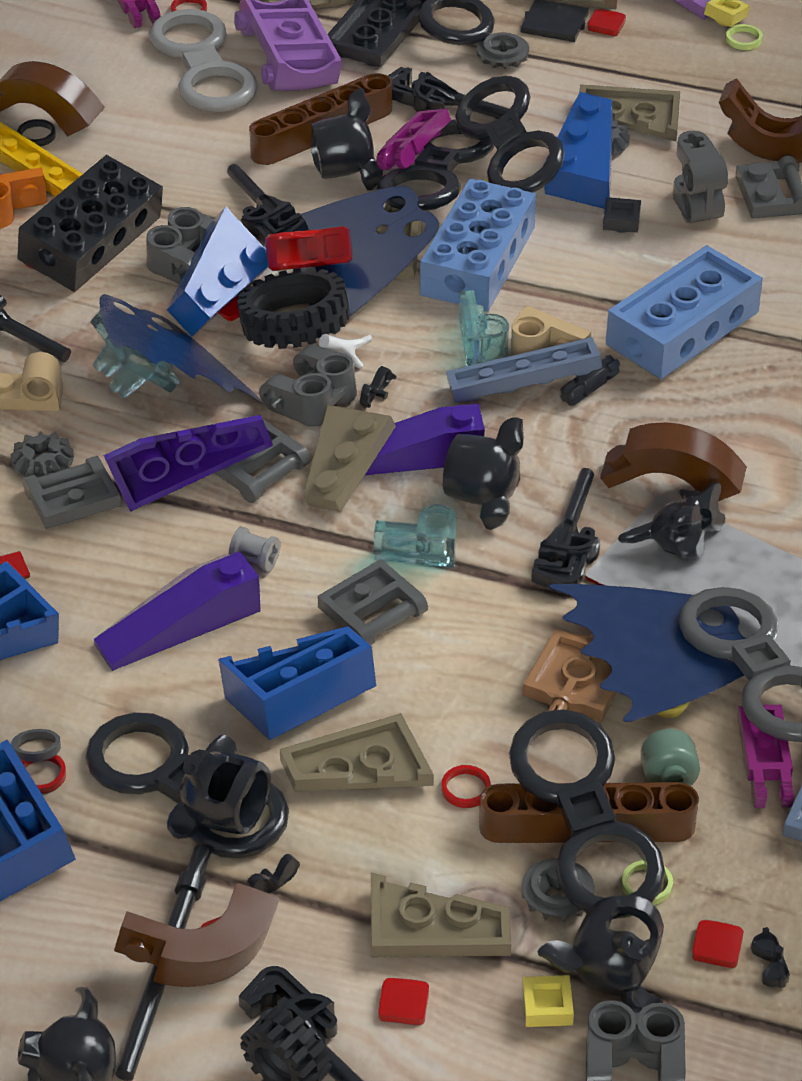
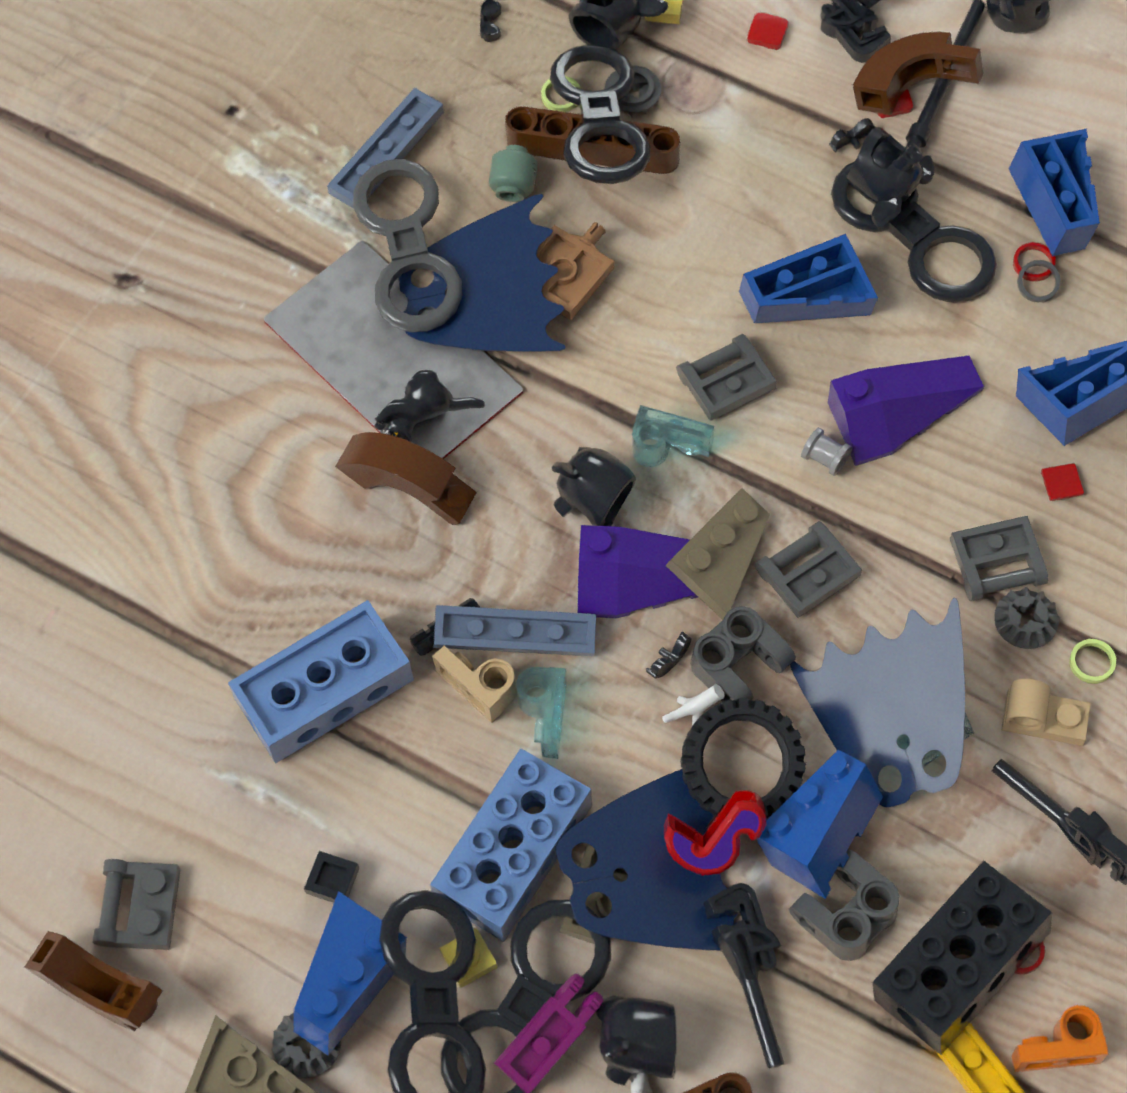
camera: 165 degrees left, 20 degrees up
(179, 458) = (907, 551): dark purple wedge -> none
(359, 758) = (760, 223): dark tan wing -> none
(431, 925) = (735, 74): dark tan wing -> none
(459, 770) = (678, 210): red piece -> none
(566, 545) = (530, 414): black piece -> none
(702, 178) = (231, 887): dark grey piece -> none
(717, 943) = (524, 39): red piece -> none
(766, 759) = (439, 165): magenta hinge -> none

